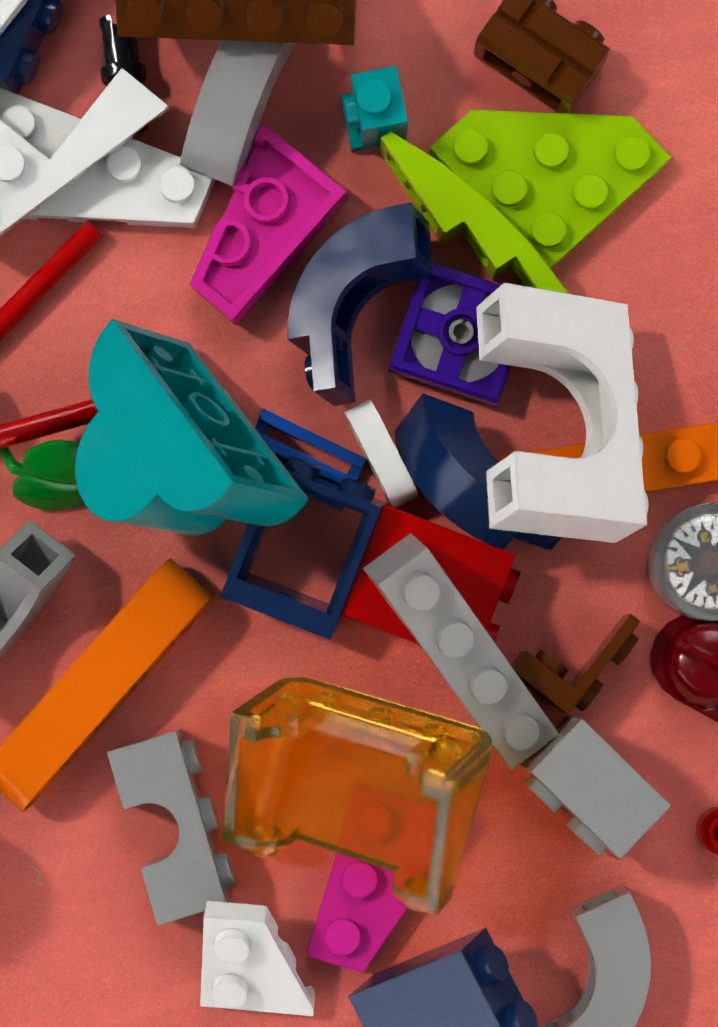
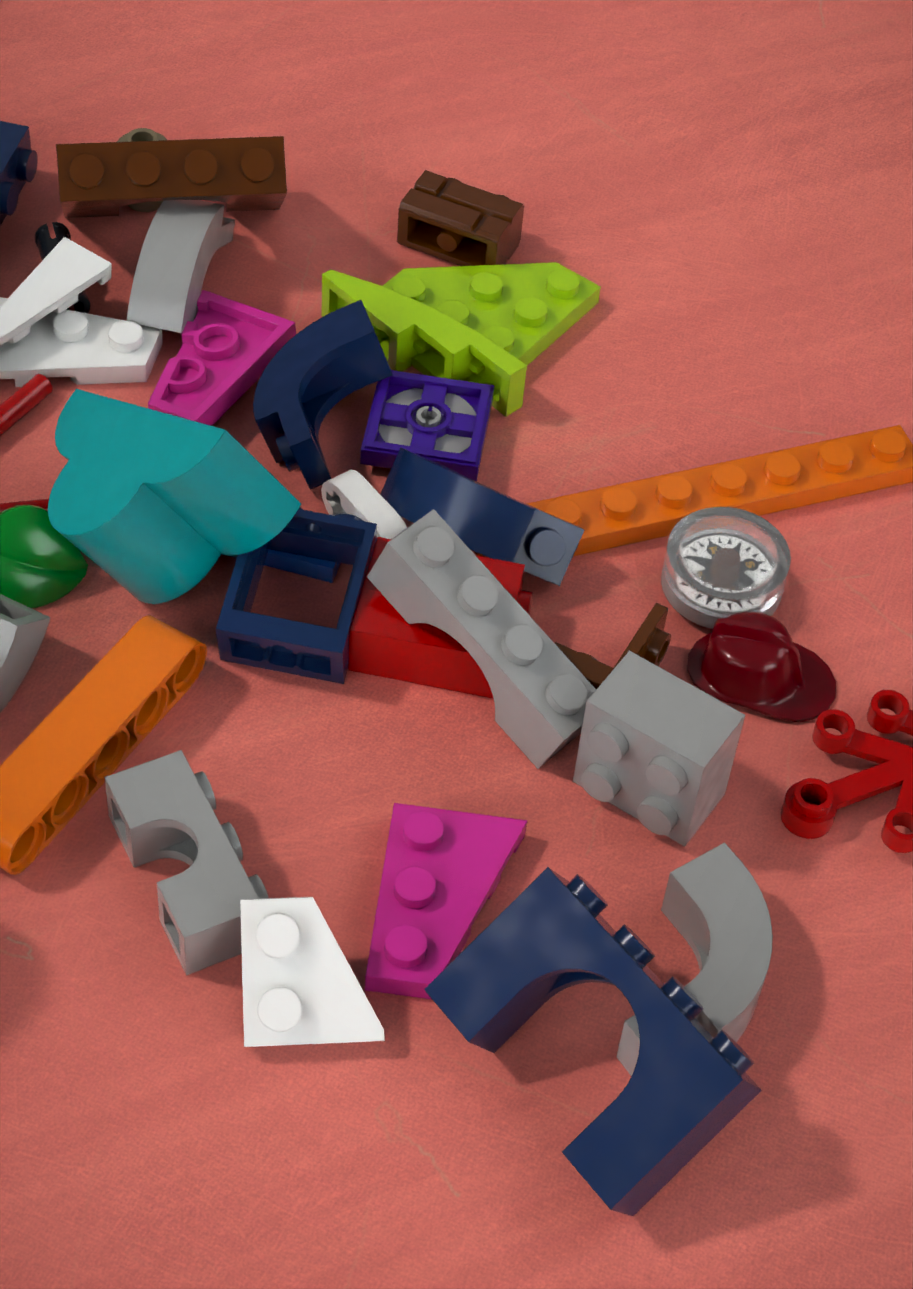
camera: 15 degrees left, 35 degrees down
(357, 782) = (391, 773): clear yellow windscreen -> none
(374, 108) = (308, 254): teal brick -> none
(590, 352) = (557, 443): white arch -> none

